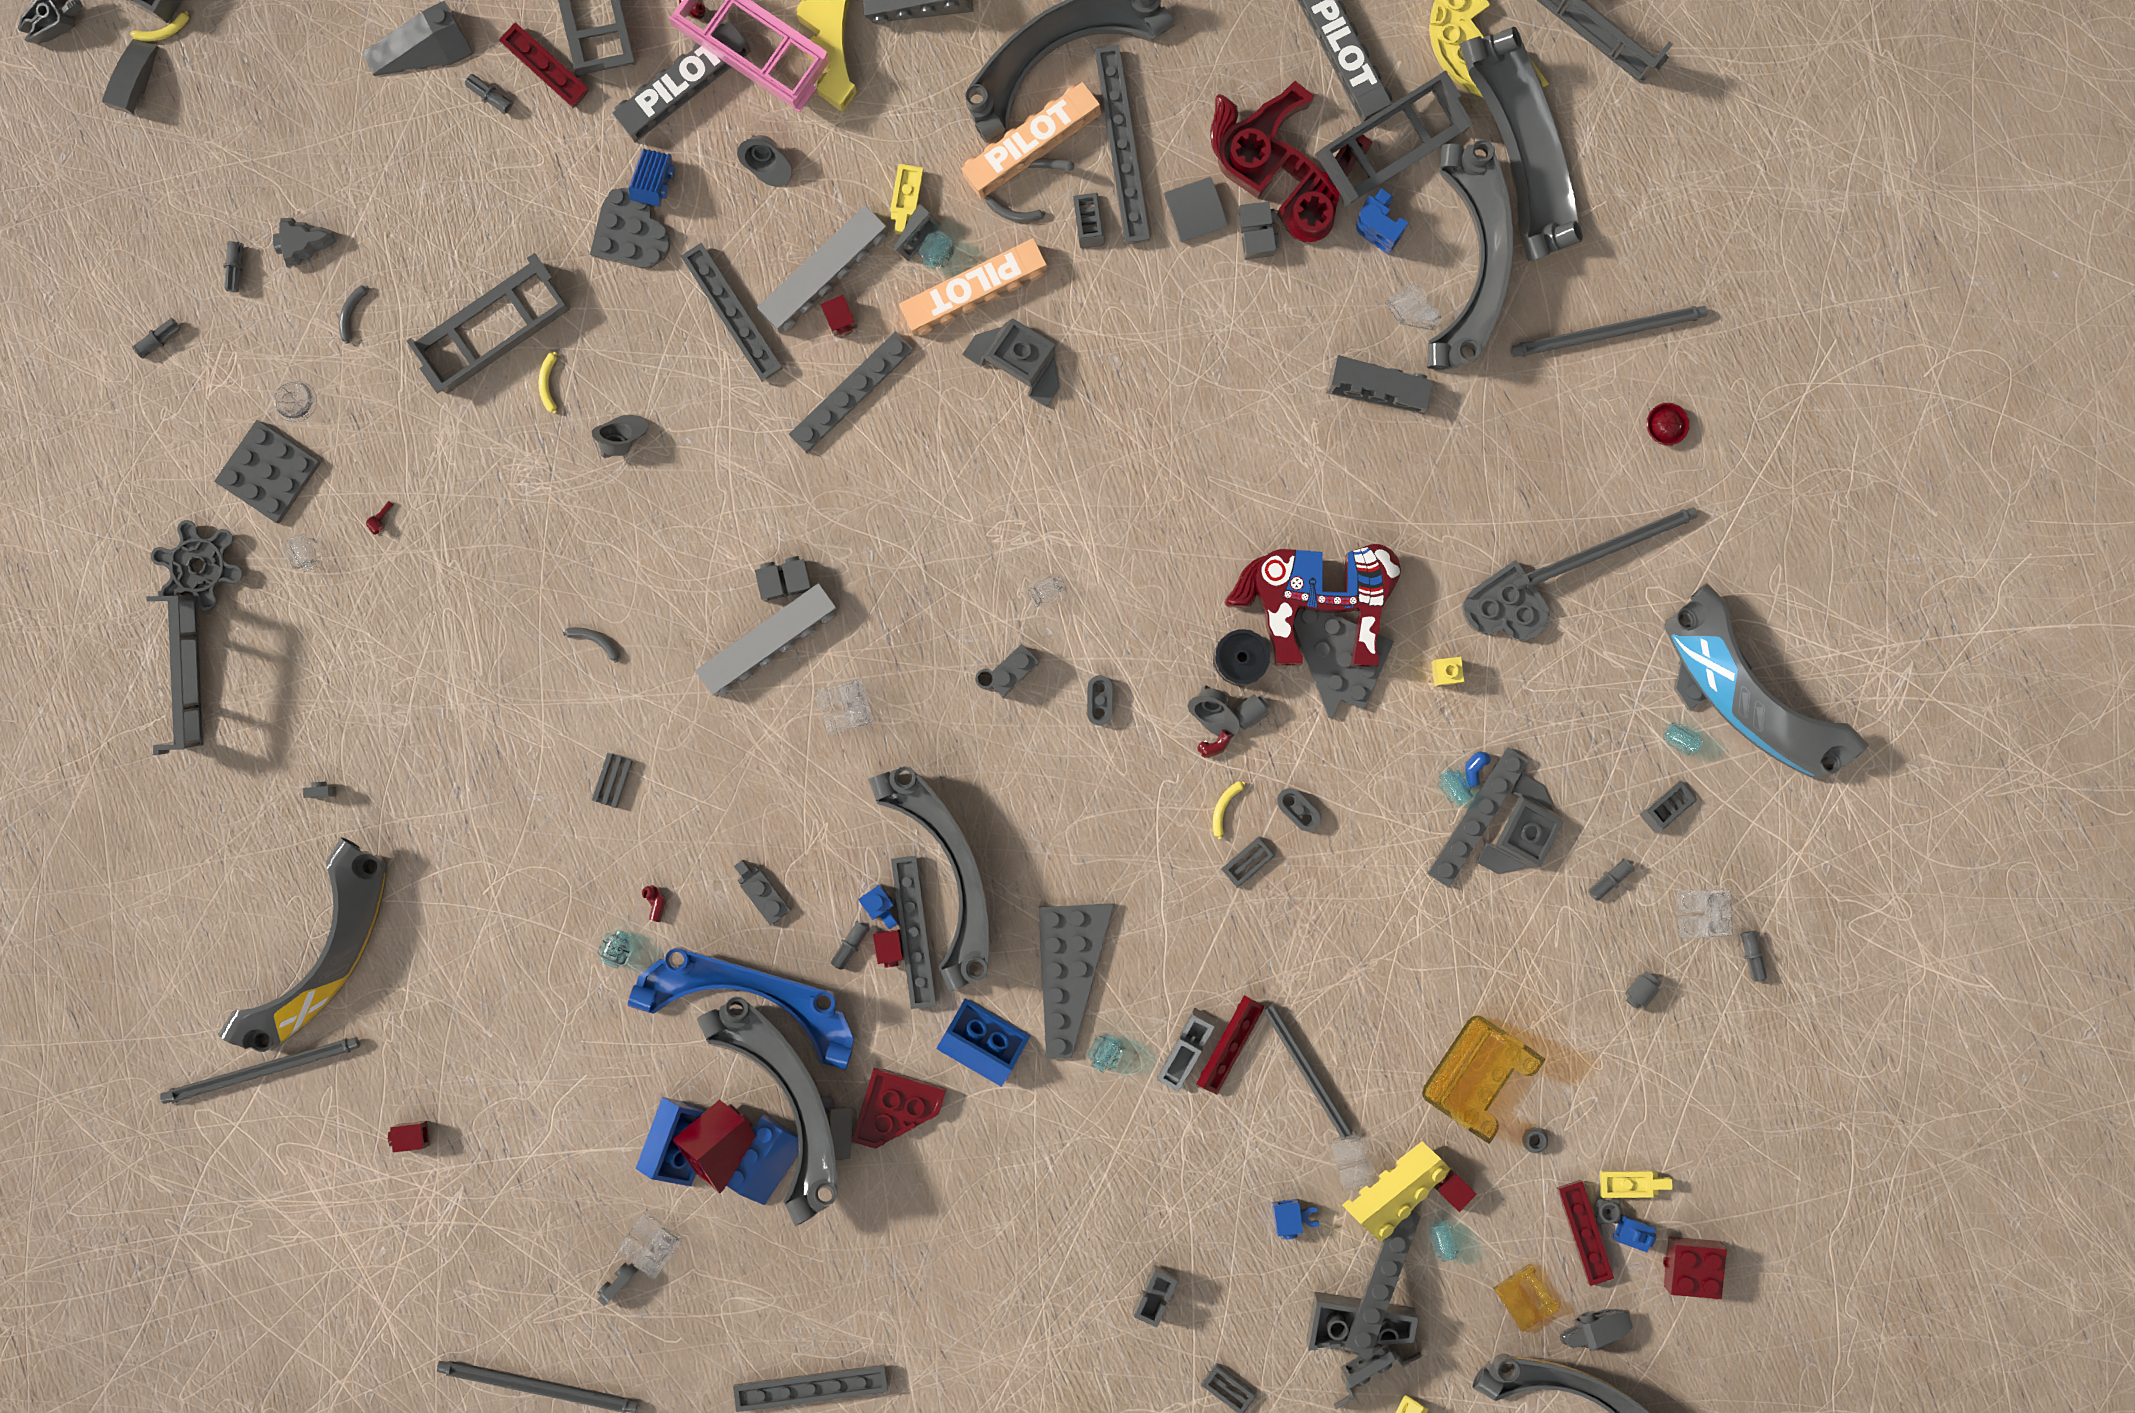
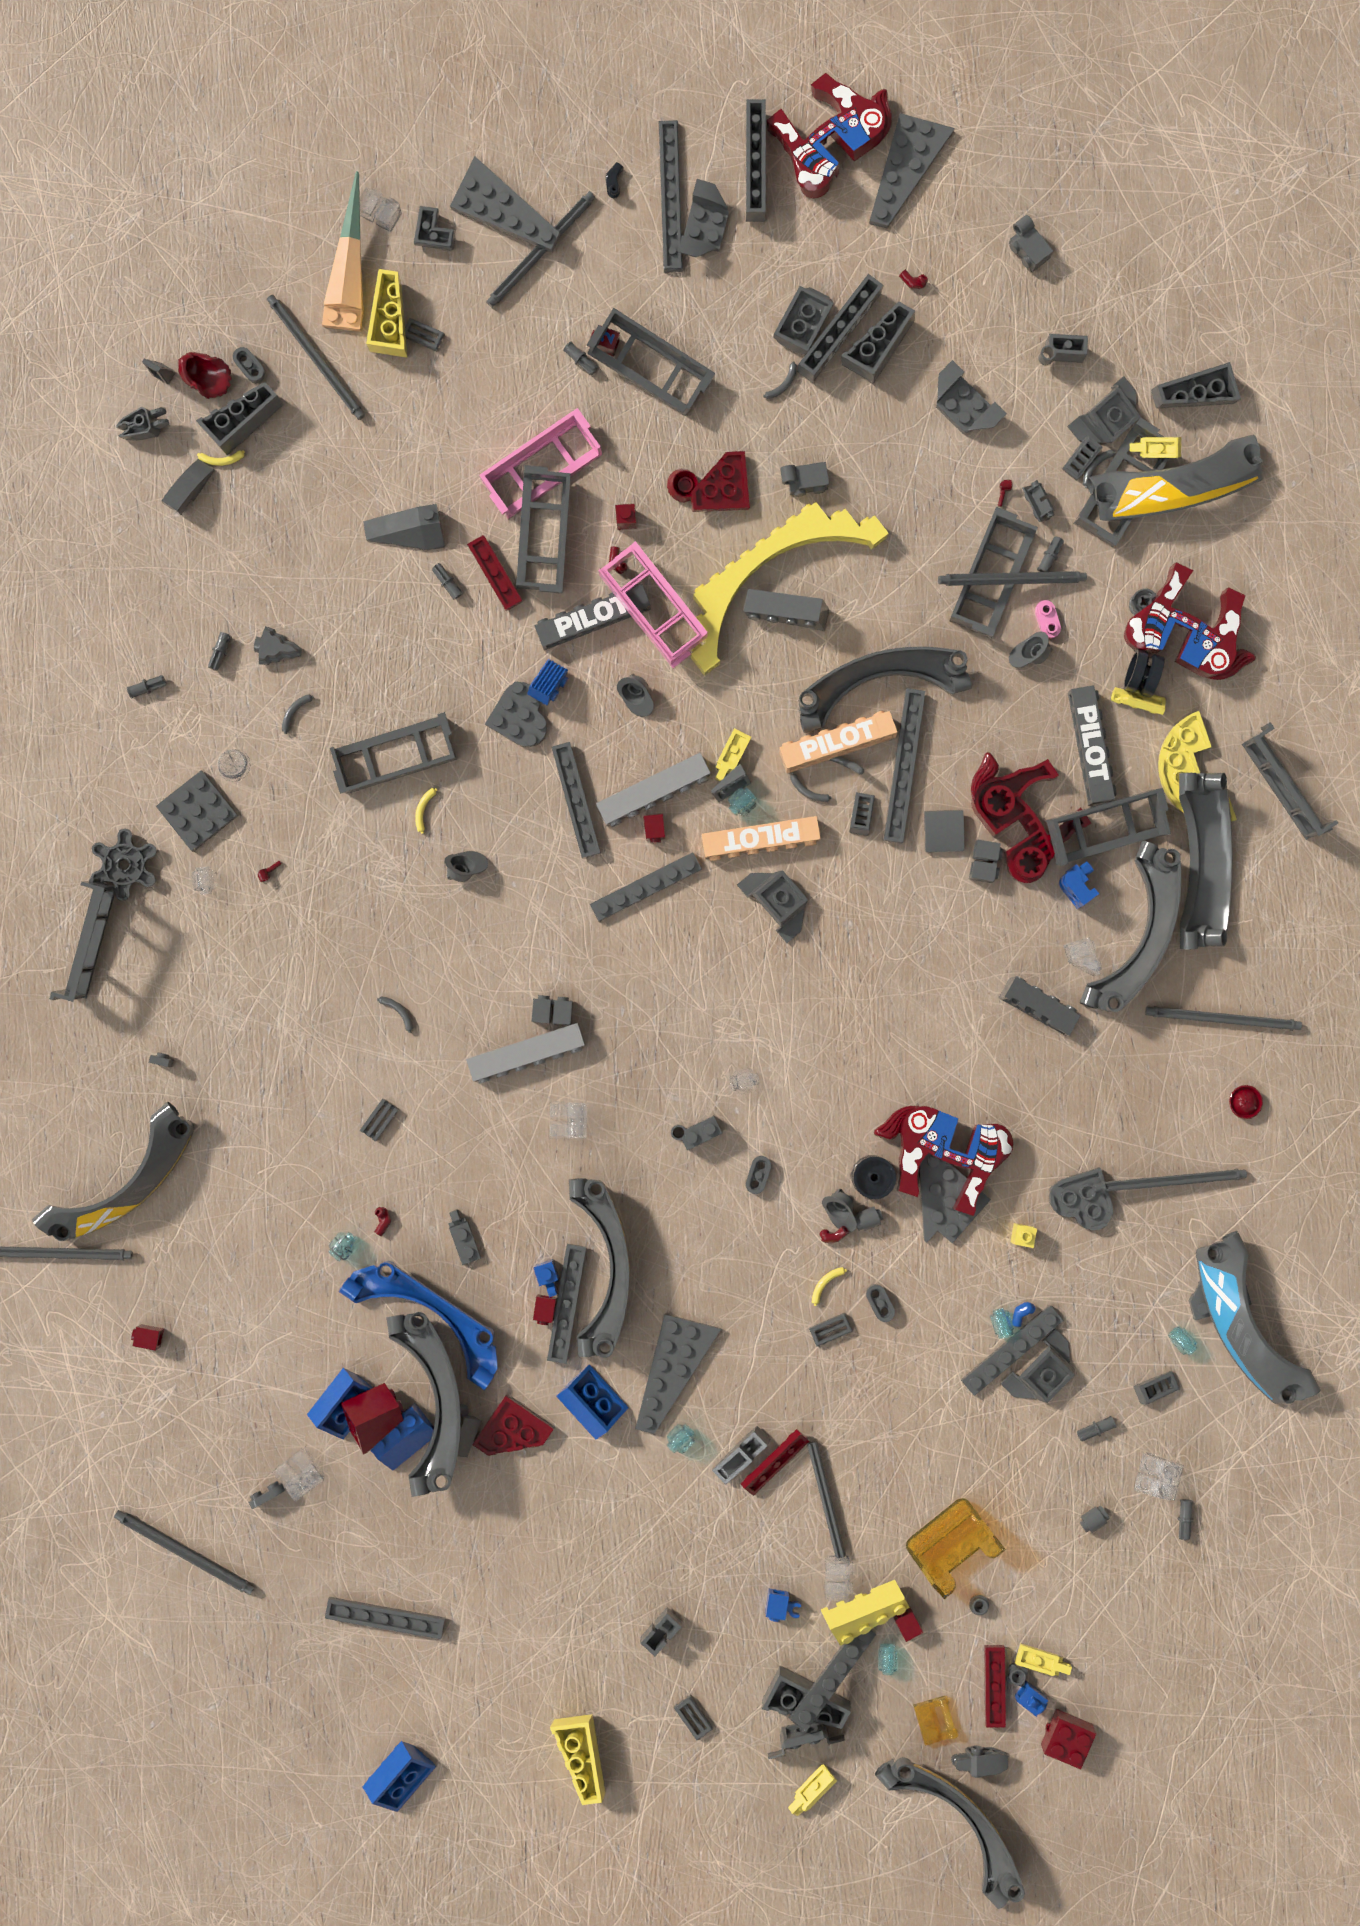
camera: 20 degrees right, 0 degrees up
(849, 945) = (516, 1298): dark grey axle -> none

